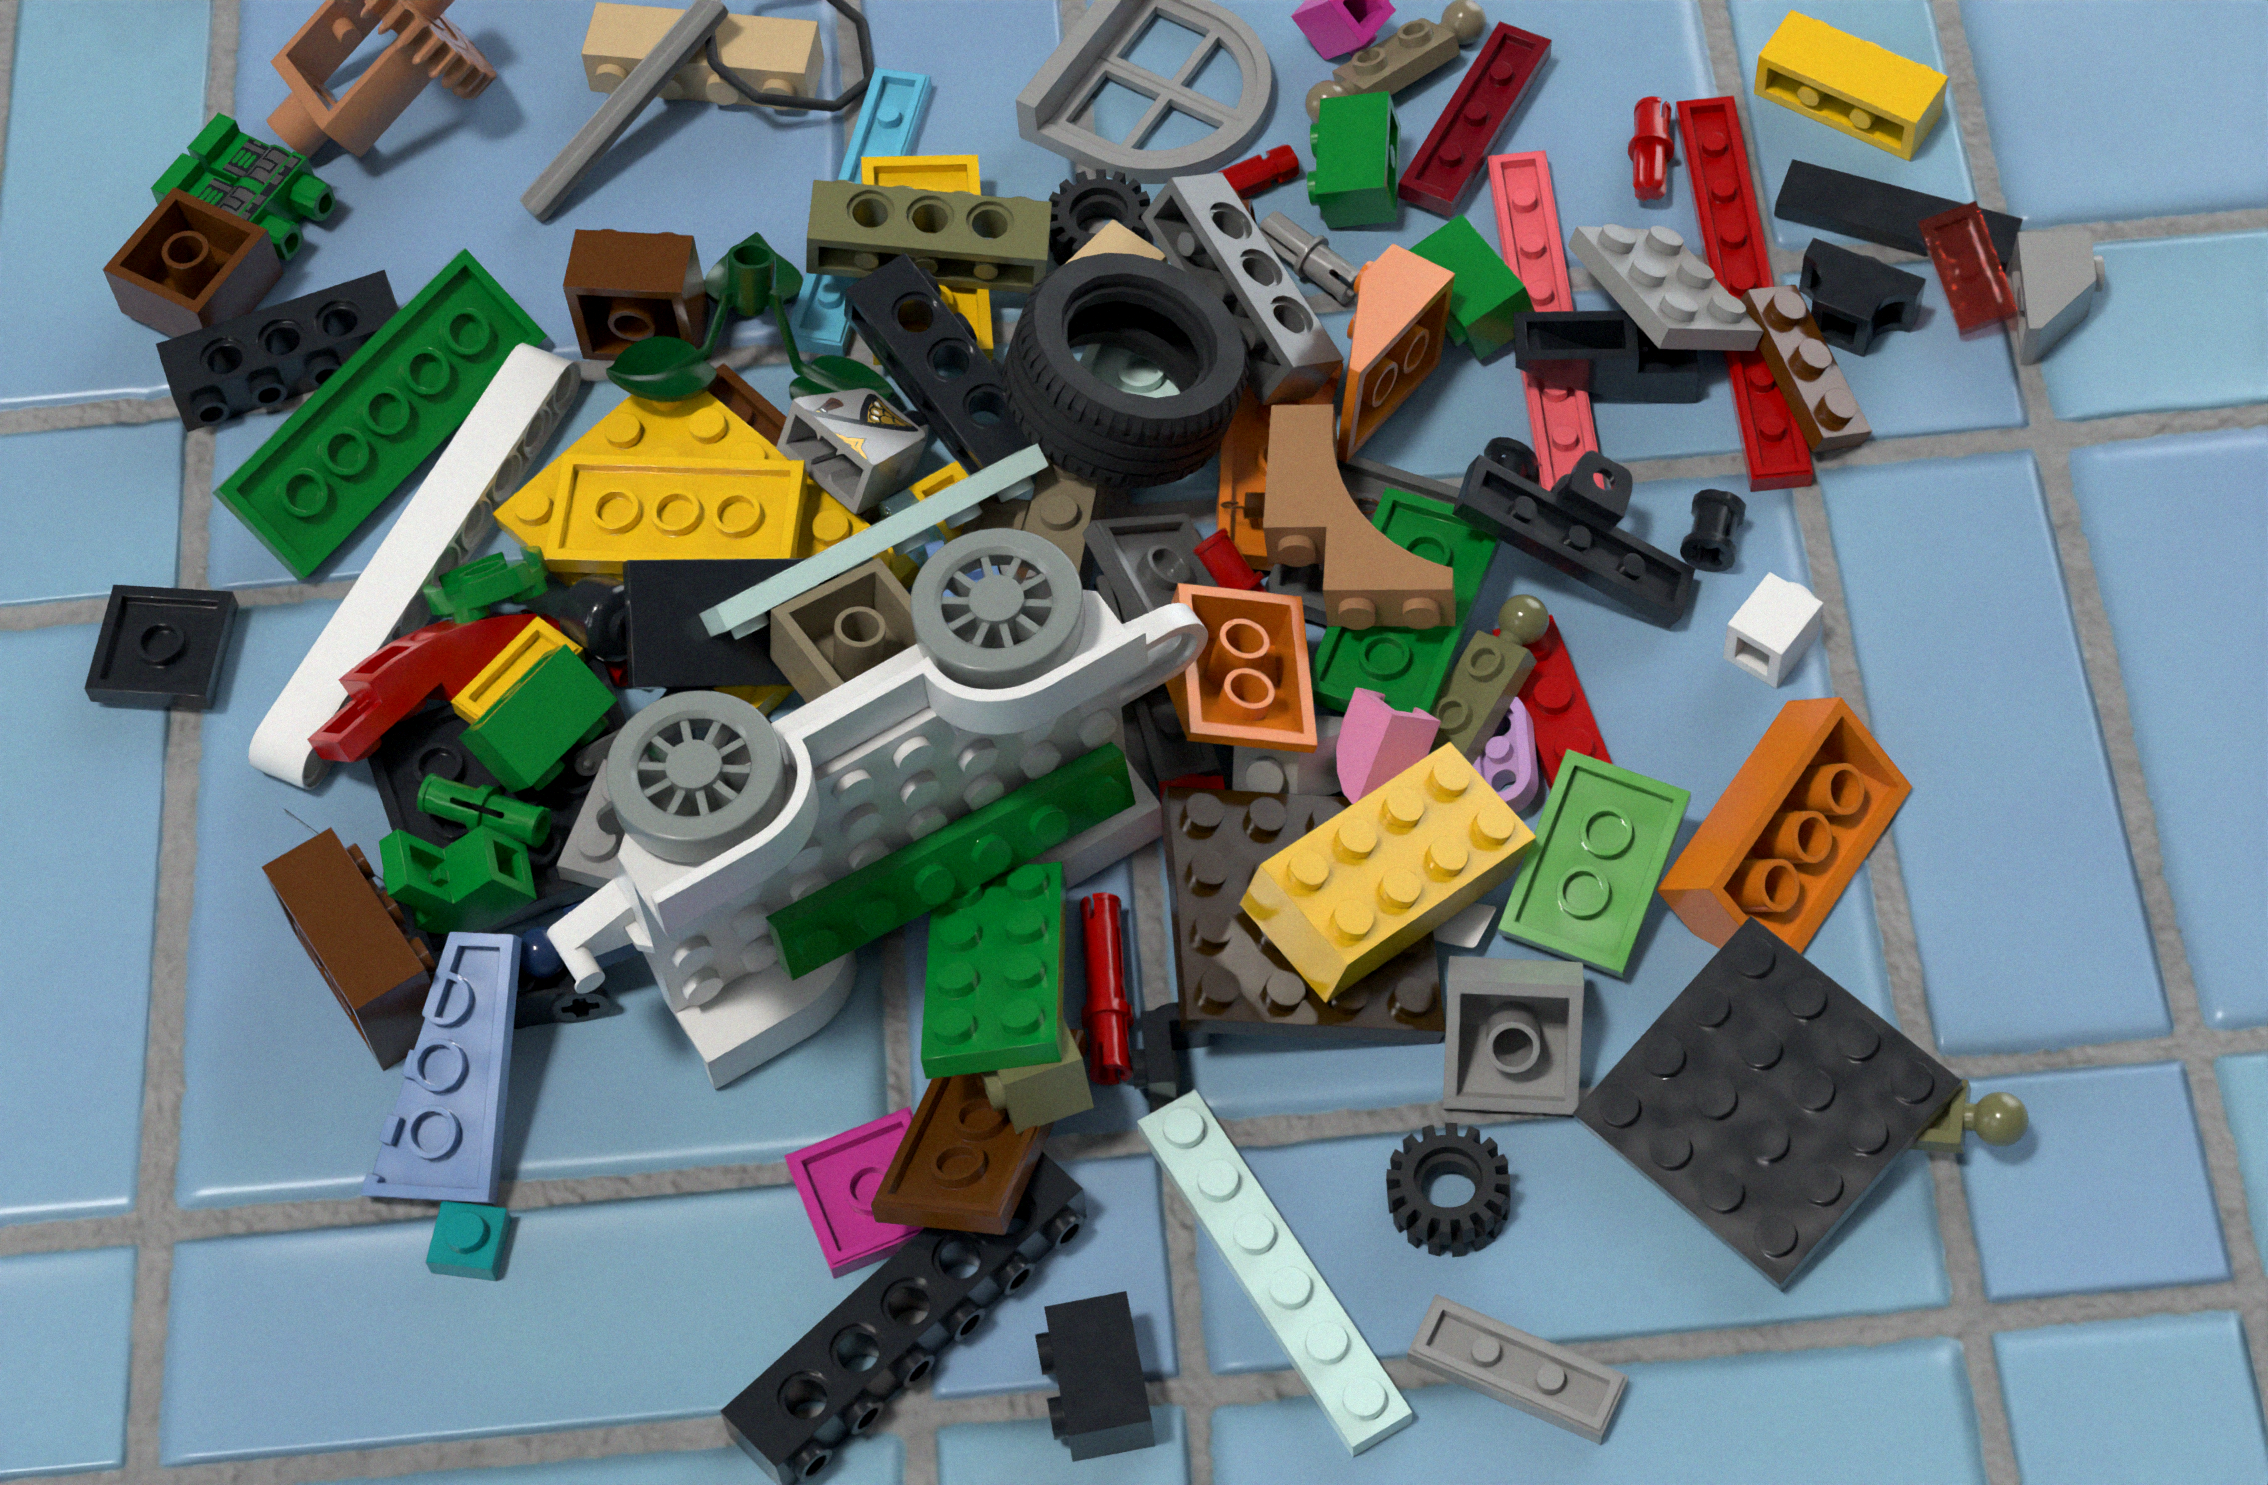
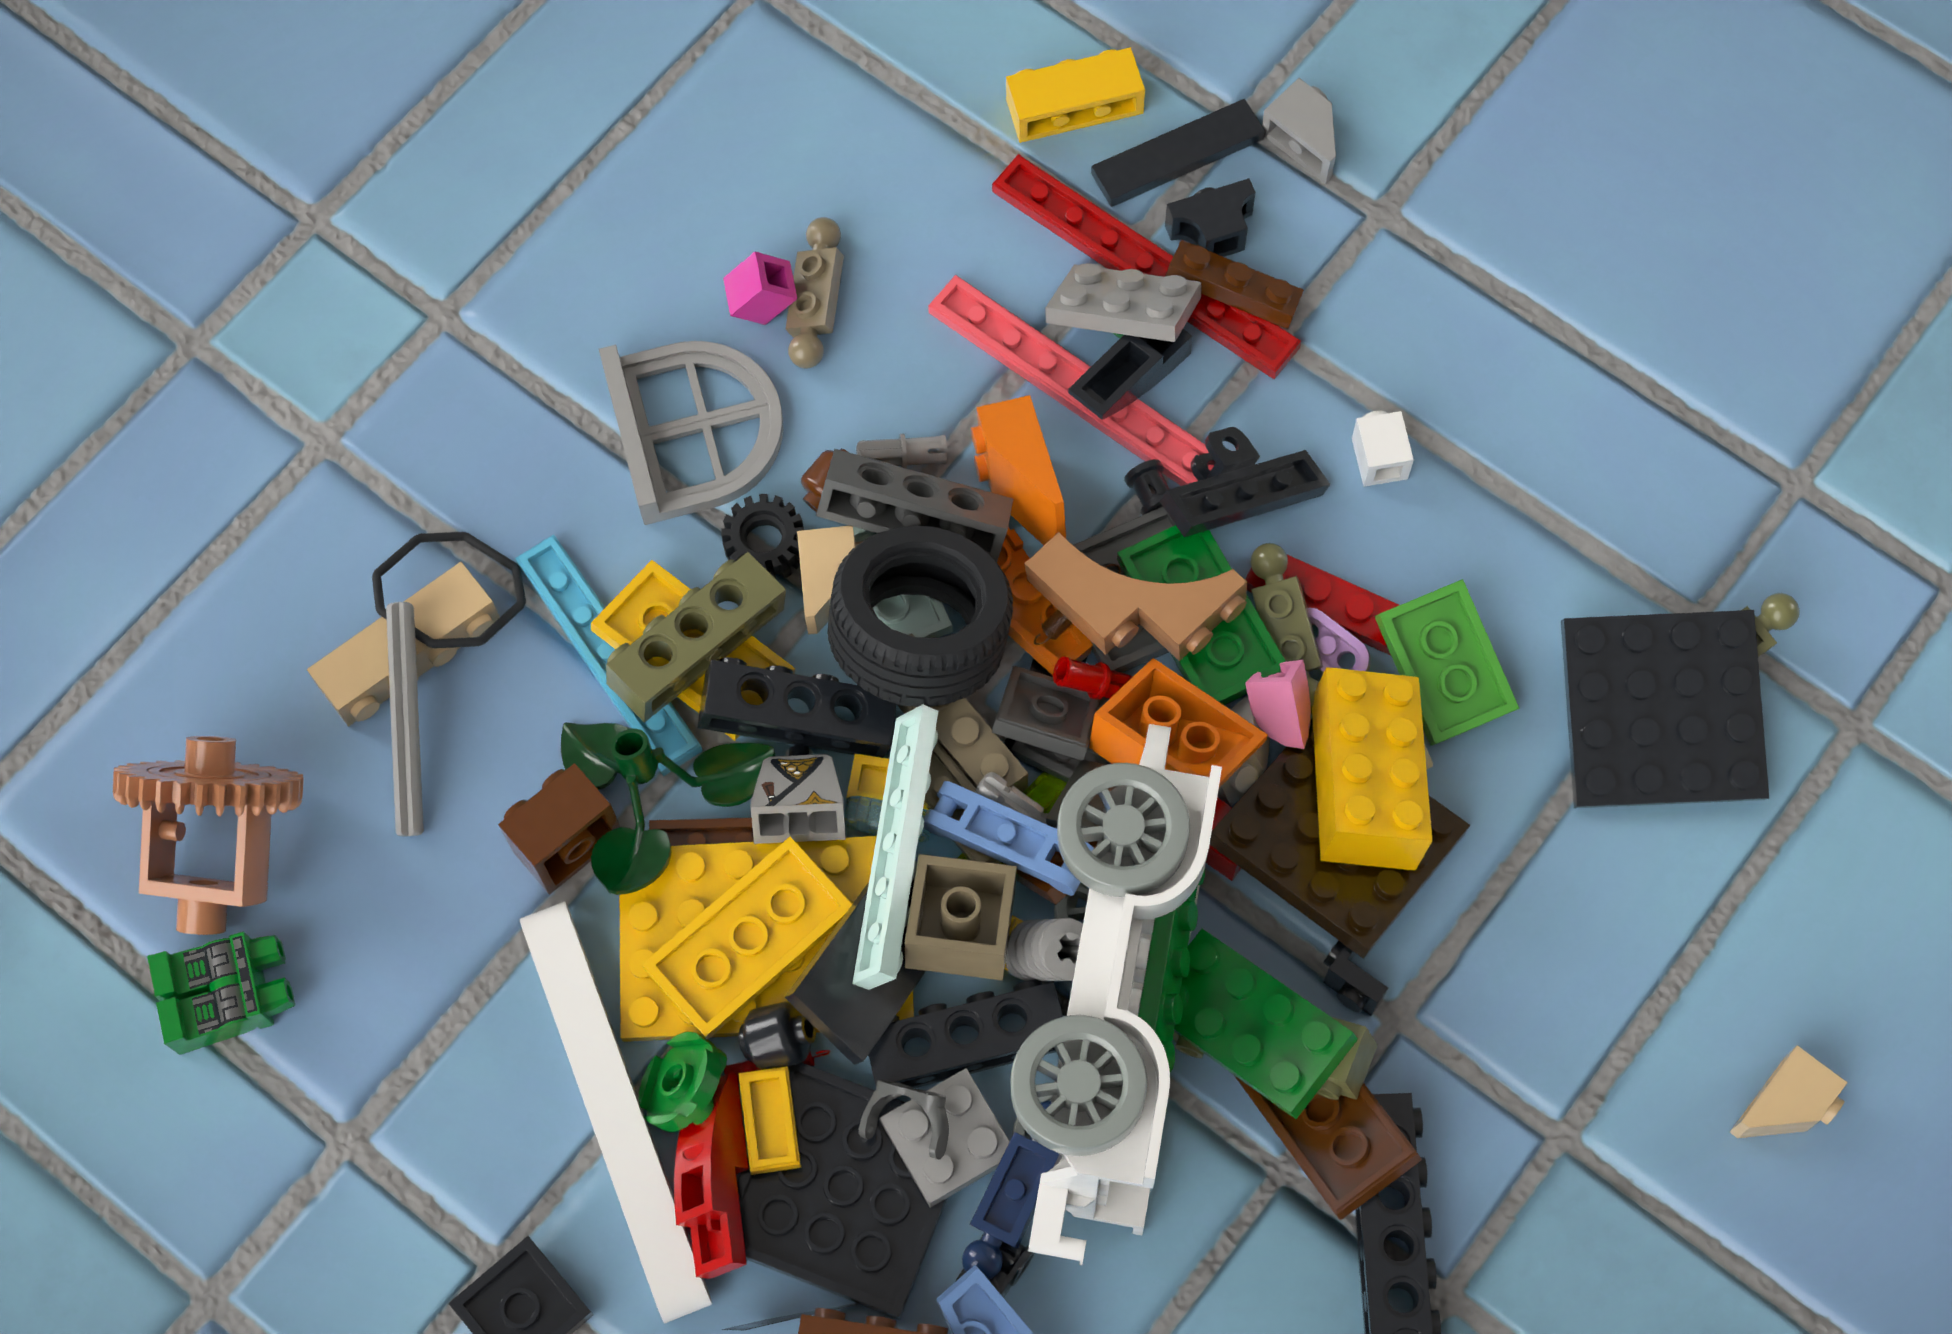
camera: 50 degrees left, 10 degrees up
(192, 266) = (255, 1068): reddish brown brick -> none
(273, 351) = (390, 989): black brick -> none
(377, 416) = (488, 1045): green plate -> none
(449, 798) = (847, 1214): green pin -> none
(459, 886) = (892, 1266): green brick -> none
(540, 720) = (824, 1132): green brick -> none
(837, 1190) = (1282, 1209): dark pink tile -> none
(1098, 1377) = (1521, 1182): black brick -> none
(1106, 1004) = (1280, 968): red pin -> none
(1257, 173) = (809, 436): red axle -> none
(1275, 1273) = (1530, 1036): light aqua plate -> none
(1355, 160) = (869, 372): green brick -> none
(1445, 1224) = (1573, 880): black tyre -> none
(1474, 119) = (897, 289): dark red plate -> none
(1483, 287) = (1005, 379): green brick -> none
(1513, 1035) = (1506, 792): light grey slope -> none
(1518, 1369) = (1695, 966): light grey tile -> none
(1650, 148) = (1011, 224): red axle -> none
(1713, 530) = (1290, 419): black bush -> none
(1788, 827) = (1508, 554): orange slope -> none
(1967, 268) = (1254, 152): clear red plate -> none

